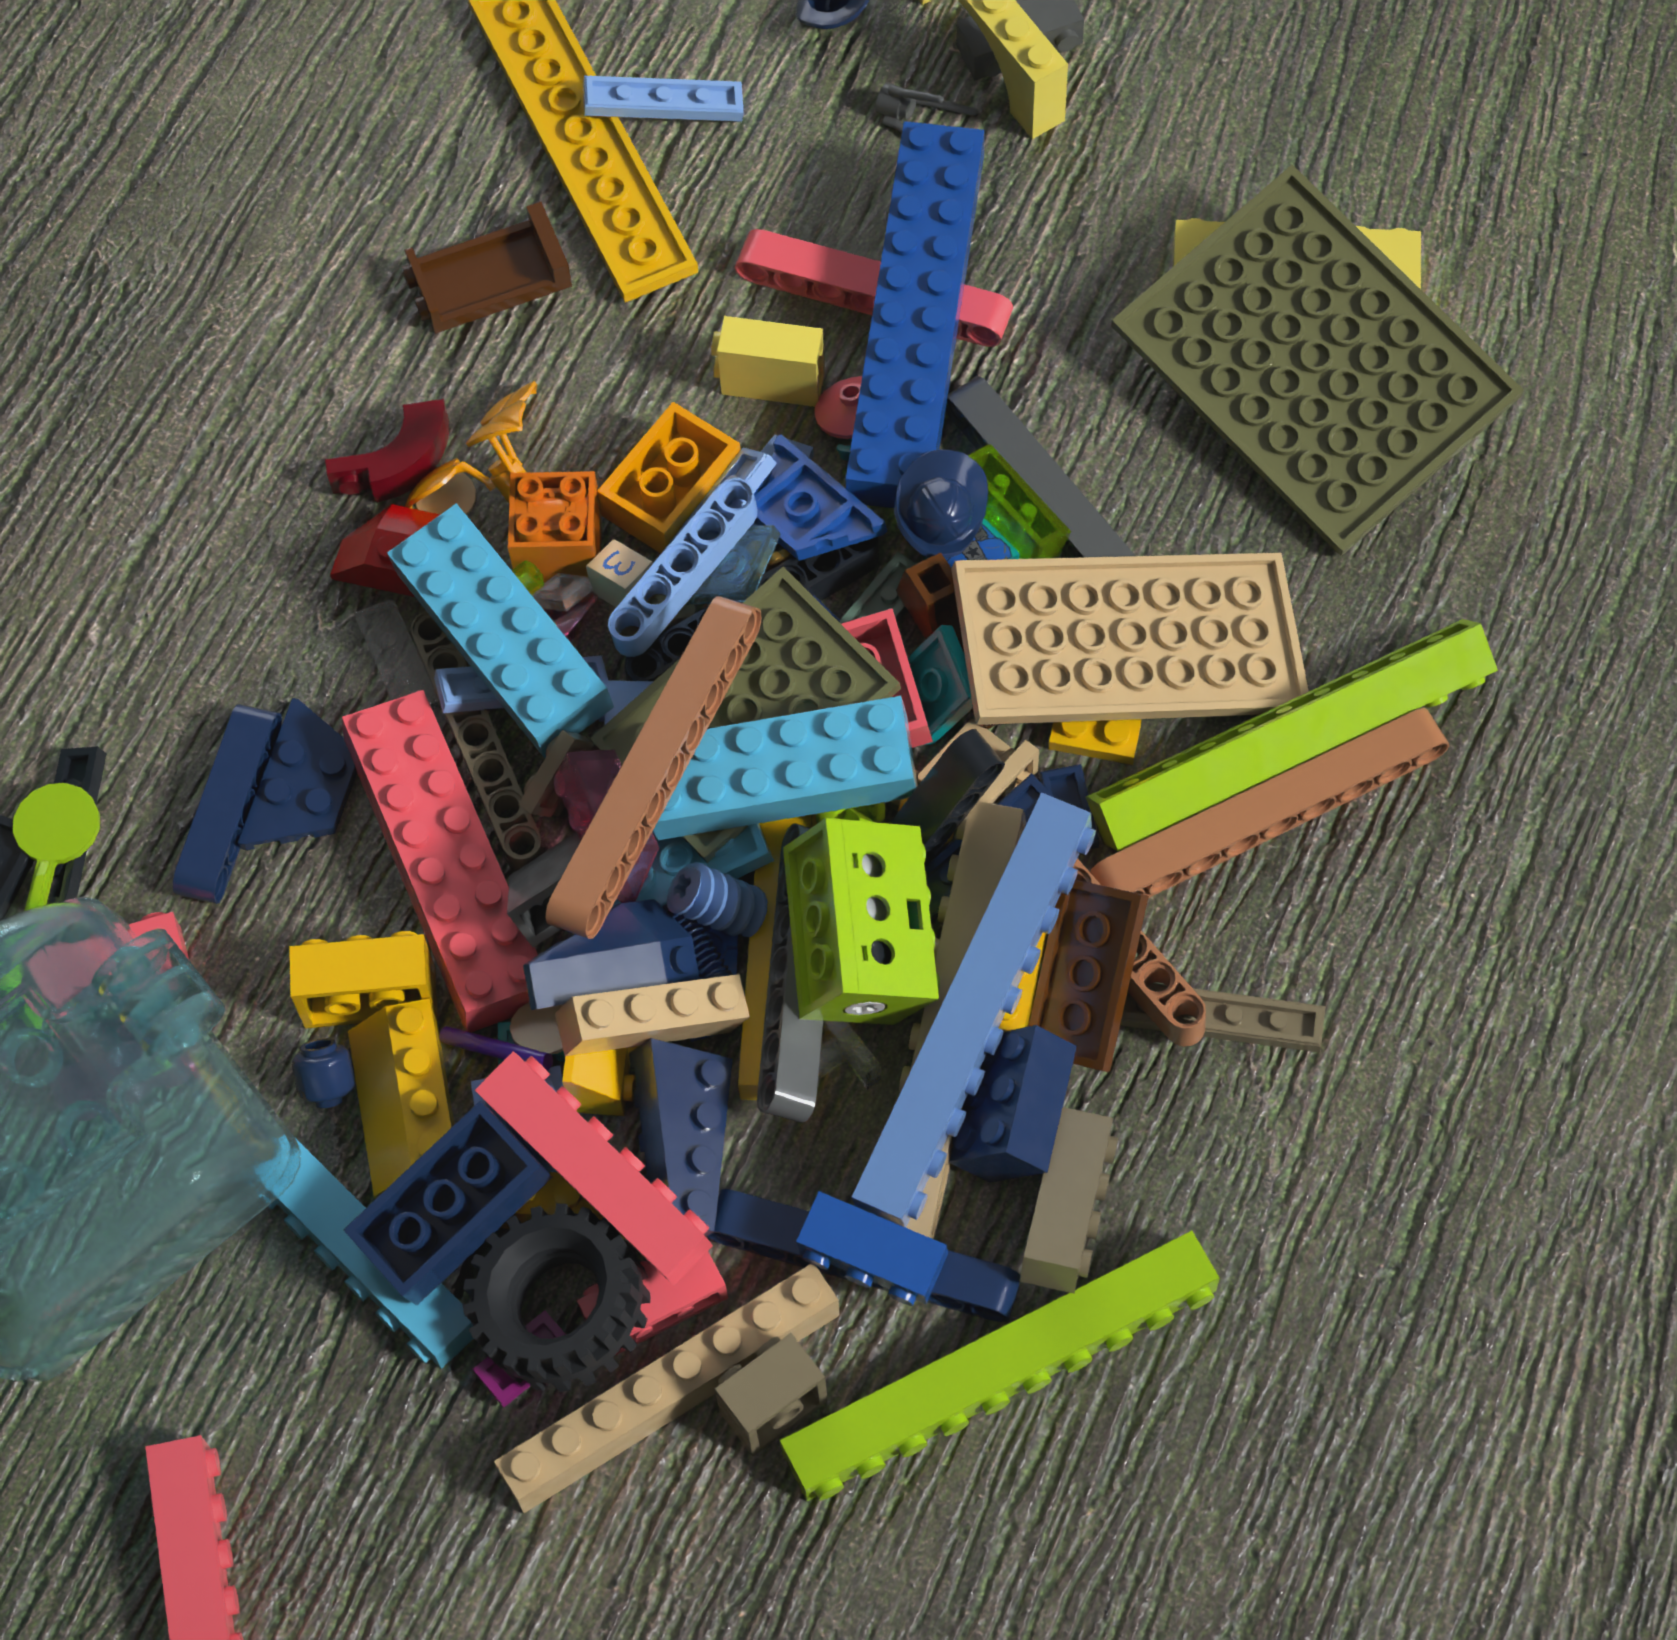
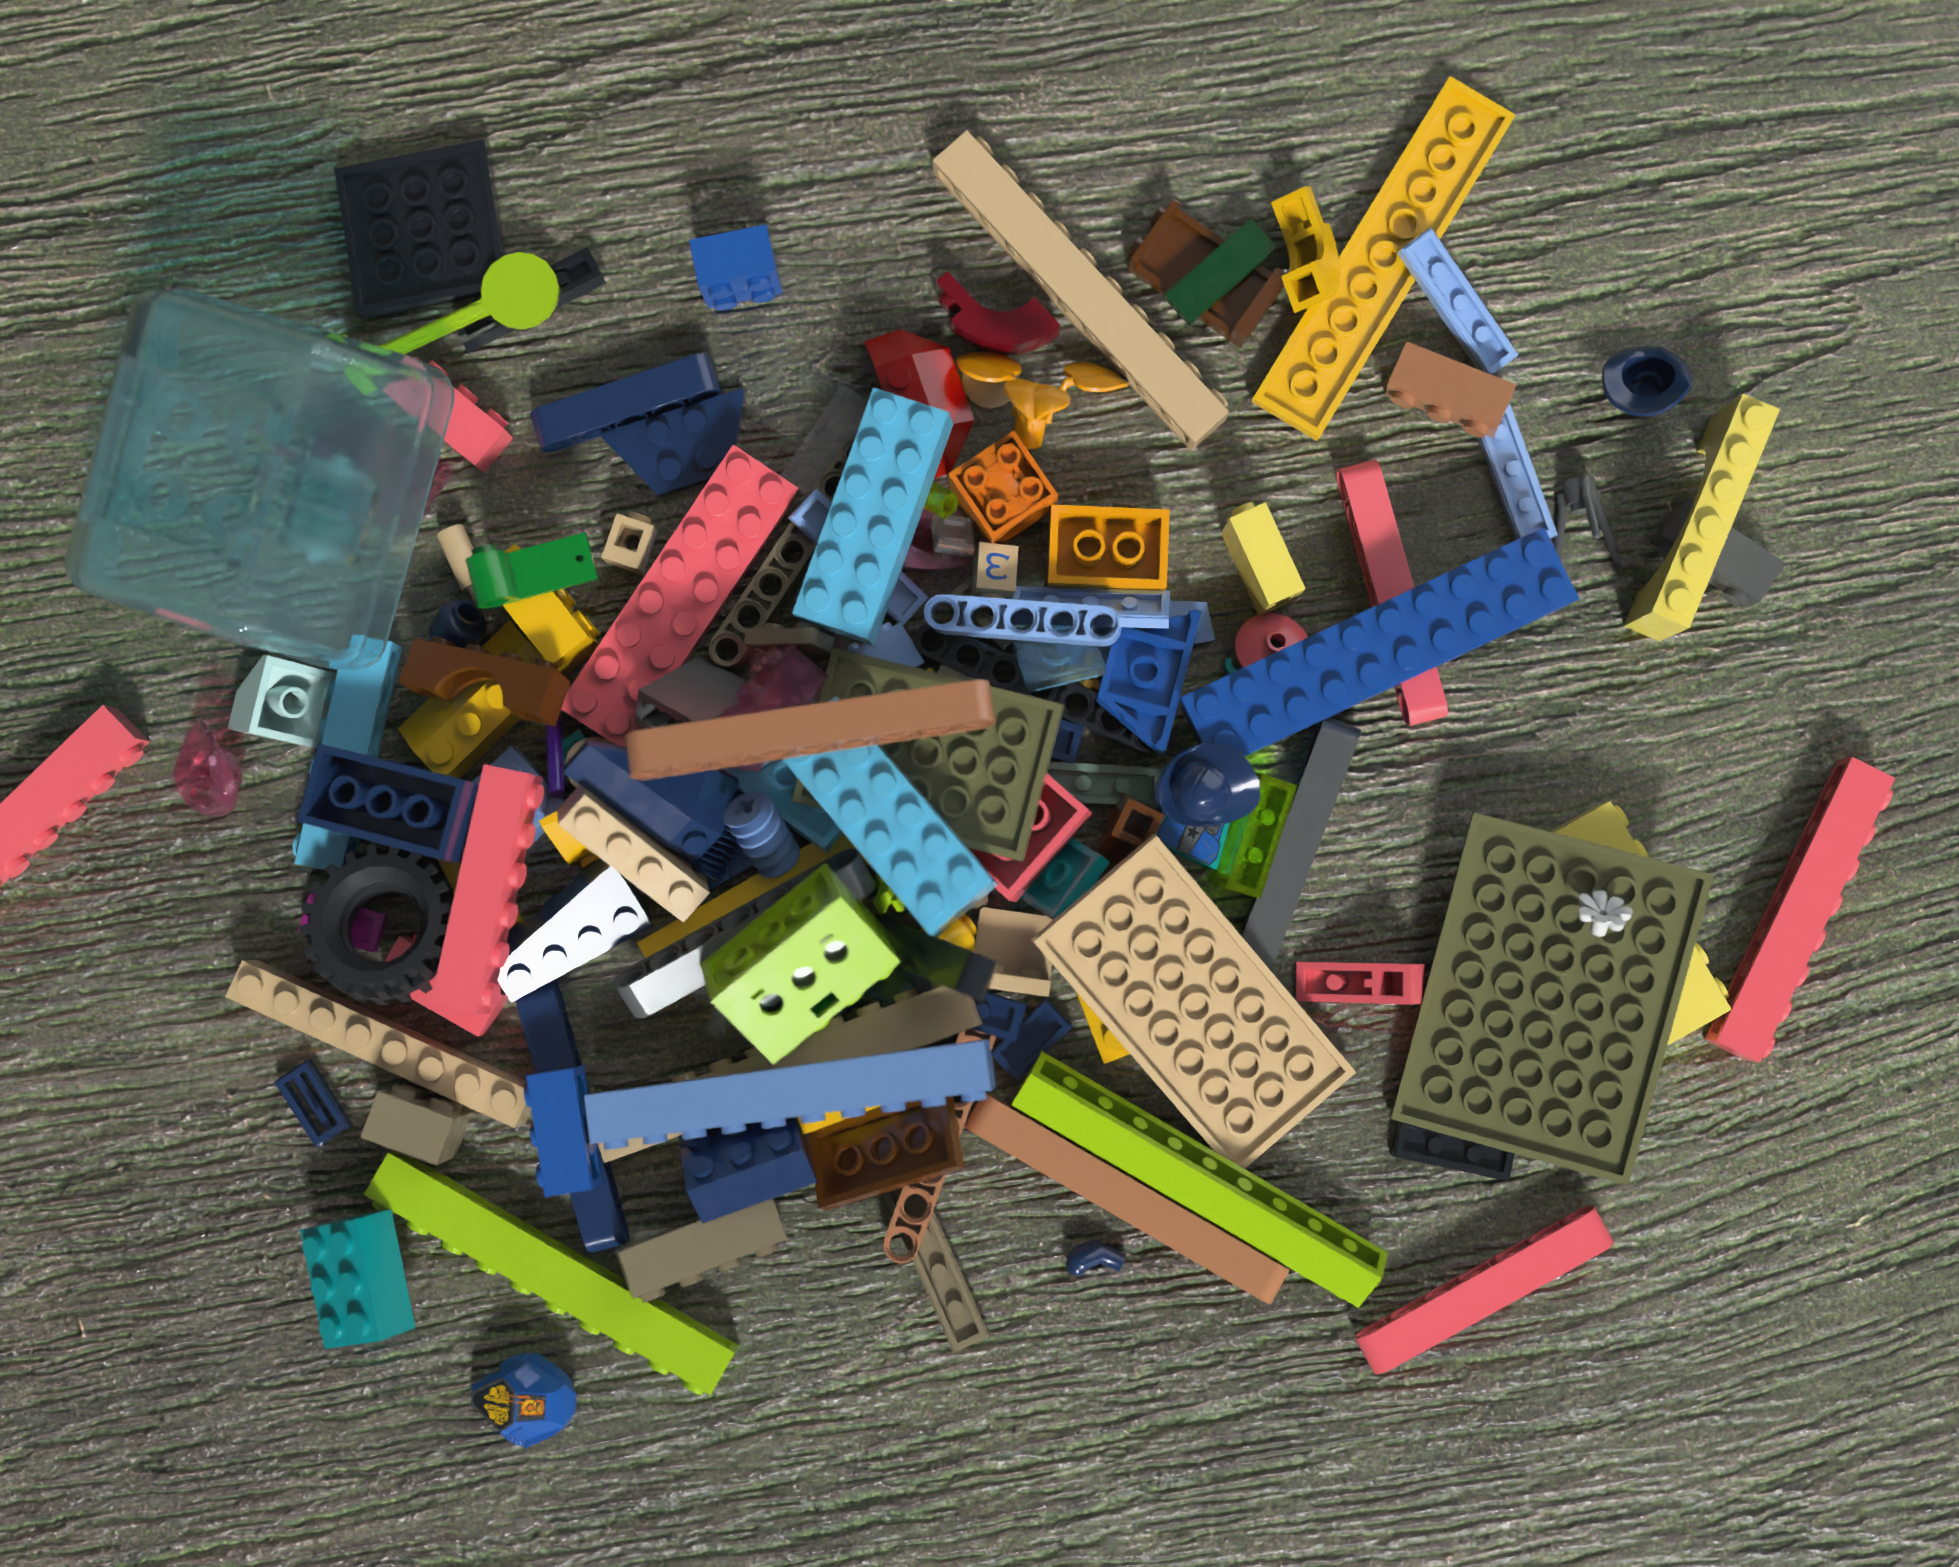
camera: 55 degrees right, 20 degrees up
(184, 627) = (736, 267): none -> blue brick
(261, 1035) = (457, 549): none -> tan cylinder
(270, 1282) = (282, 701): none -> light aqua slope
(282, 1392) = (207, 773): none -> clear pink hat
(327, 943) = (531, 571): none -> green door
(355, 1088) = (443, 671): none -> reddish brown arch
(371, 886) = (623, 529): none -> tan brick
(421, 372) = (1080, 290): none -> tan brick
(495, 256) = (1220, 272): none -> dark green tile
(527, 176) = (1311, 250): none -> yellow arch
(720, 1504) = (325, 1093): none -> dark blue tile
(733, 143) = (1449, 390): none -> nougat brick
(827, 142) = (1516, 479): none -> light blue tile
(885, 1546) = (357, 1279): none -> teal brick
(1111, 1468) = (526, 1399): none -> blue helmet
(1203, 502) = (1360, 982): none -> coral slope
(1268, 263) = (1603, 912): none -> white plant
(1305, 869) = (1092, 1253): none -> dark blue arm
(1370, 141) = (1800, 908): none -> coral brick
(1404, 525) = (1450, 1152): none -> black tile
(1547, 568) = (1484, 1289): none -> coral beam

